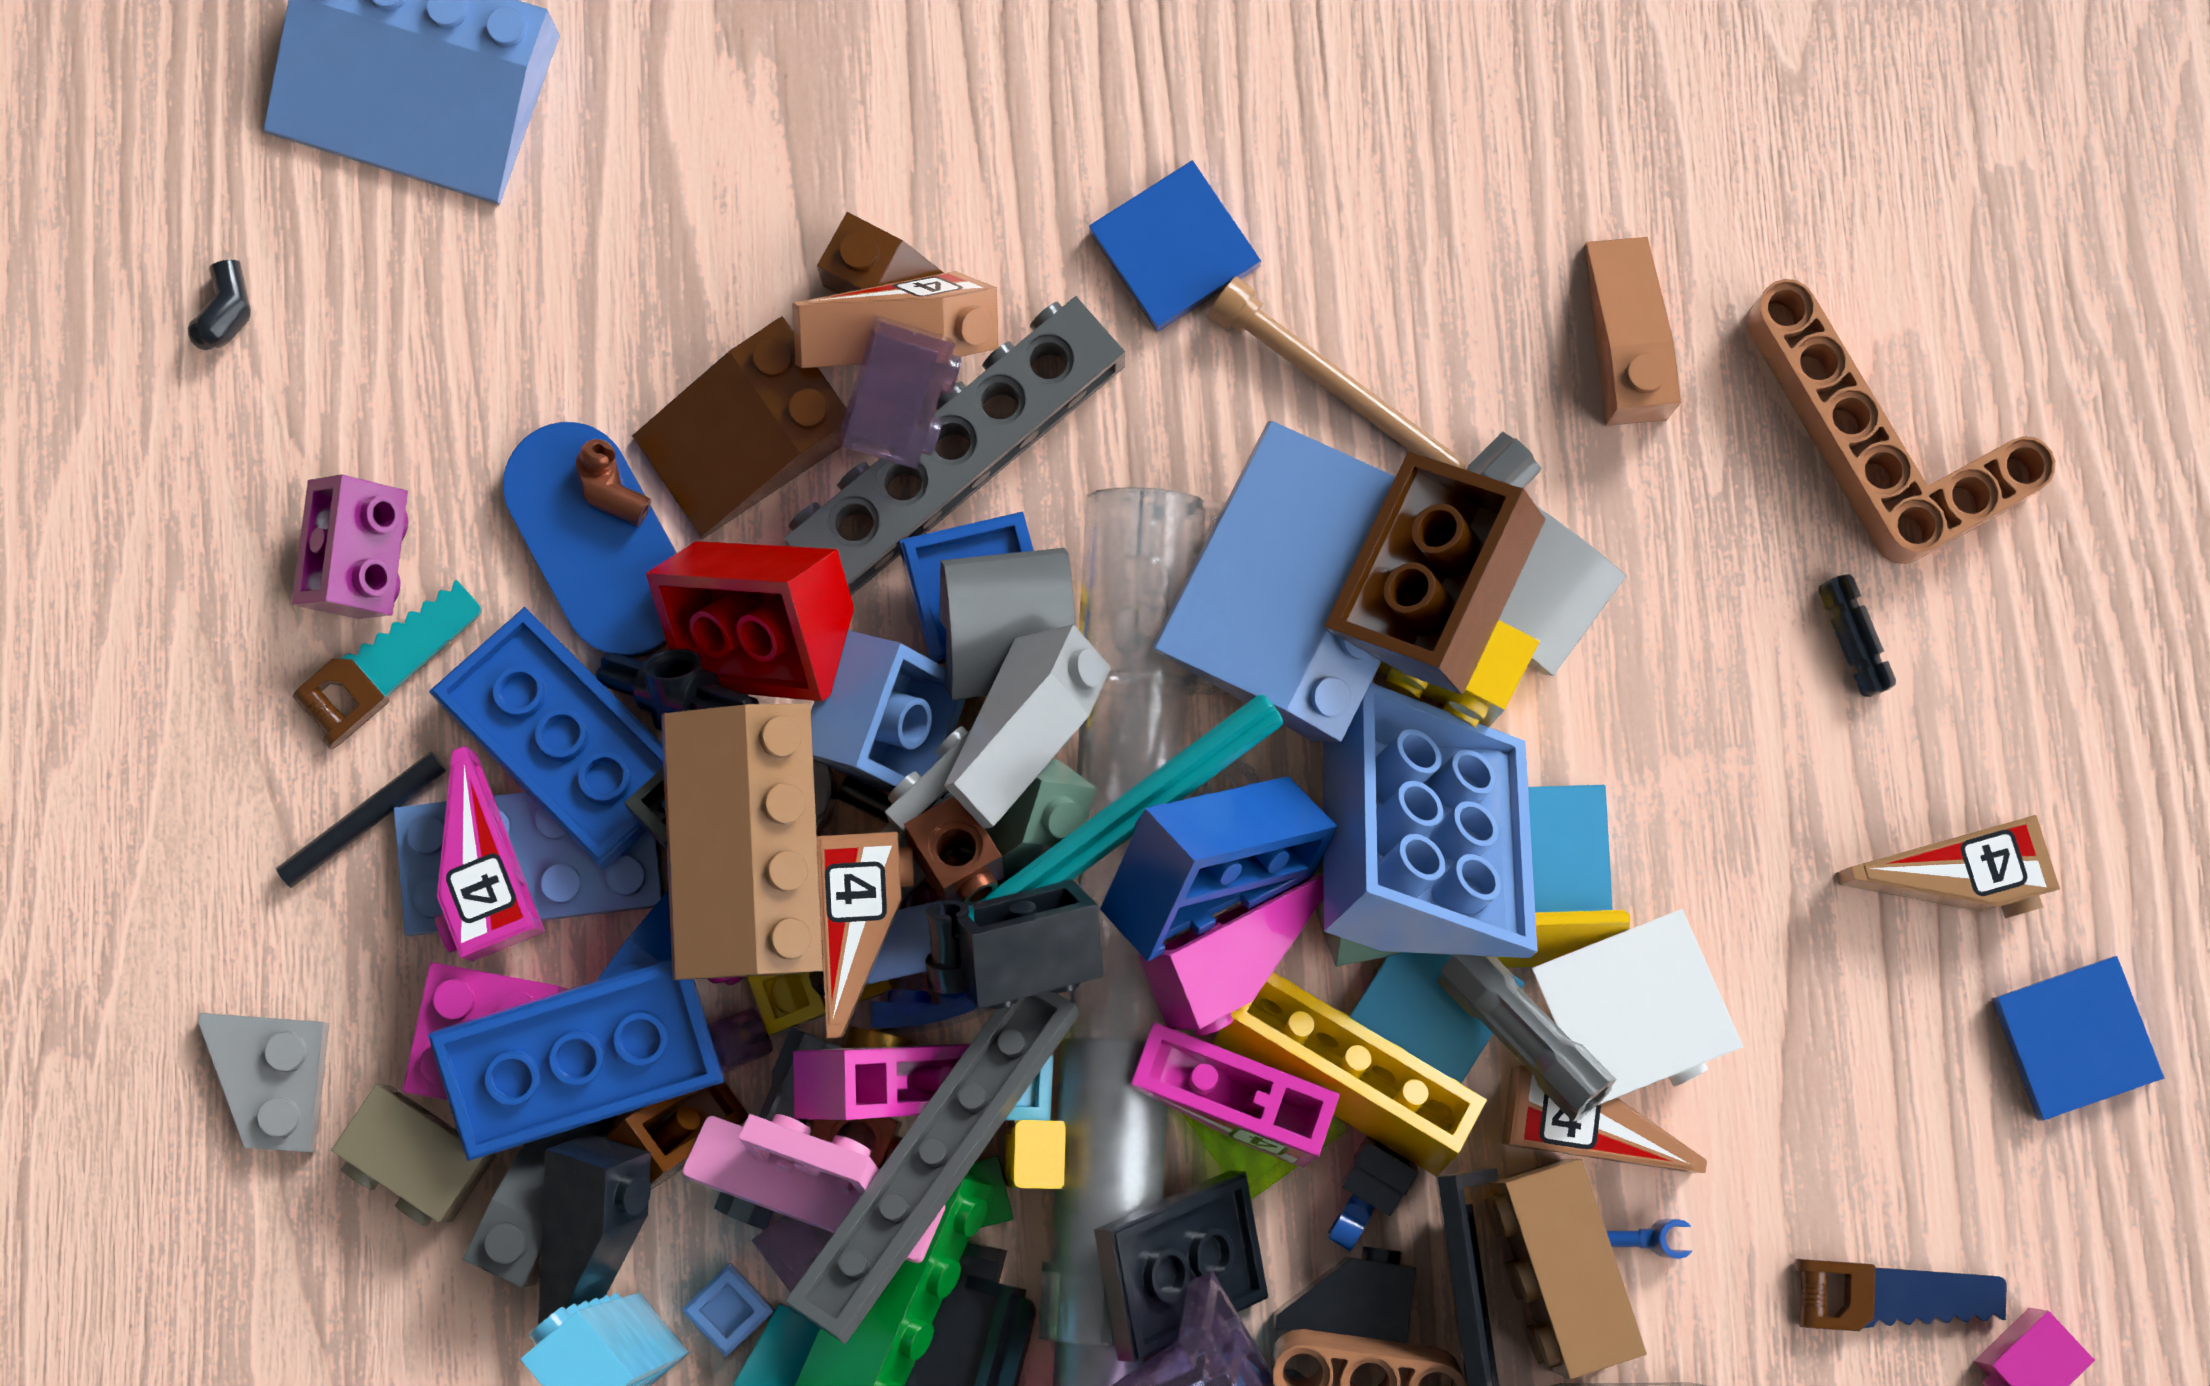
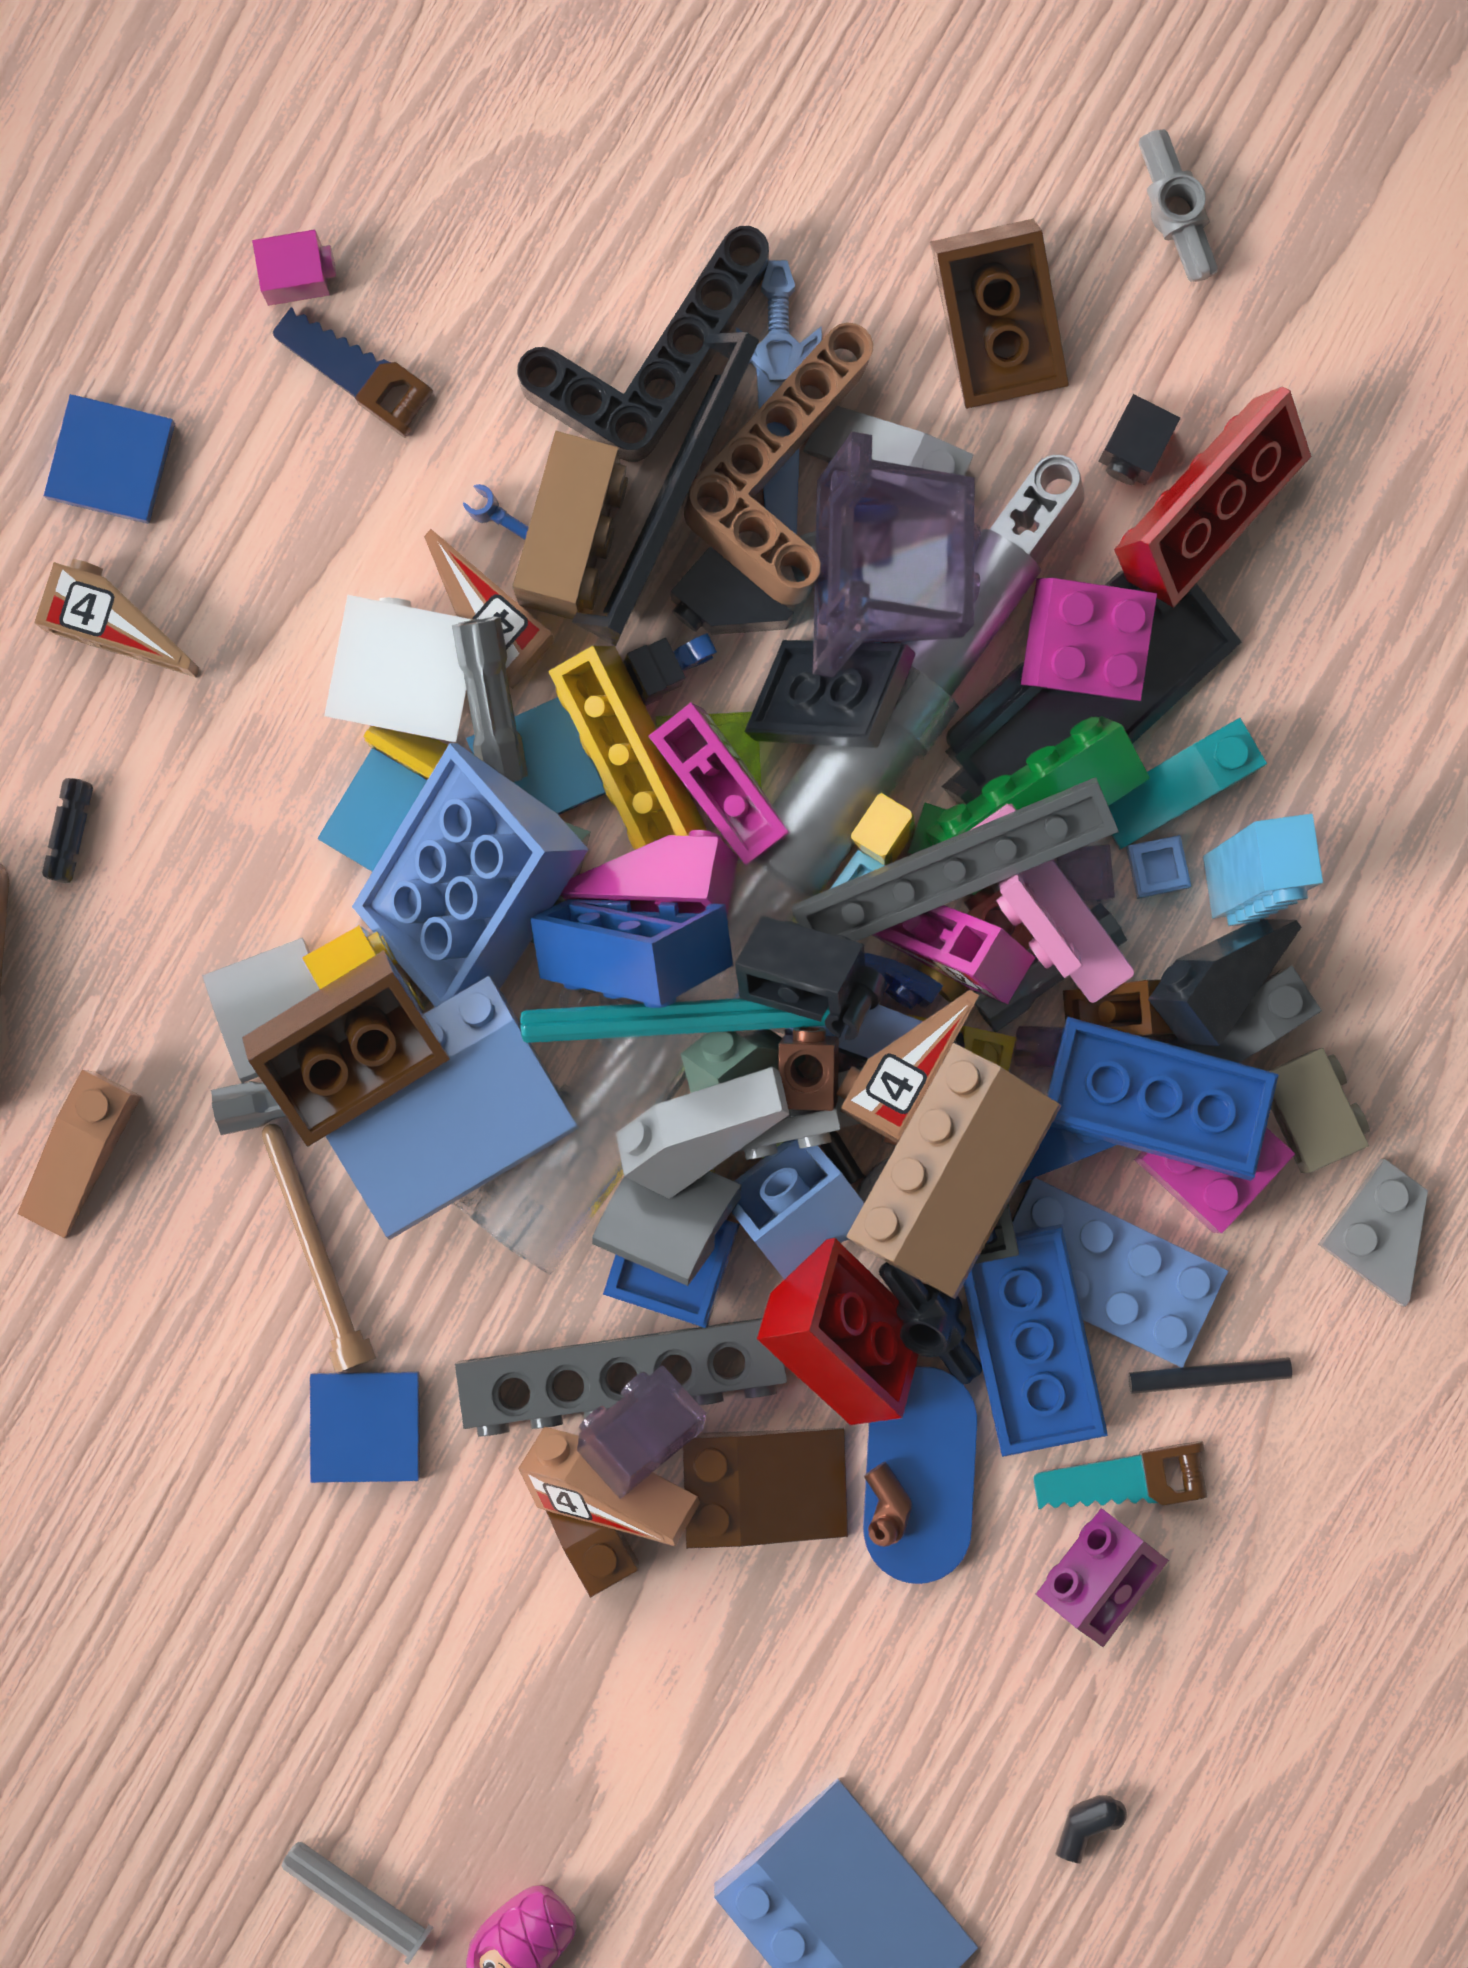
camera: 150 degrees left, 5 degrees up
(479, 875) = (1150, 1271): slope -> none

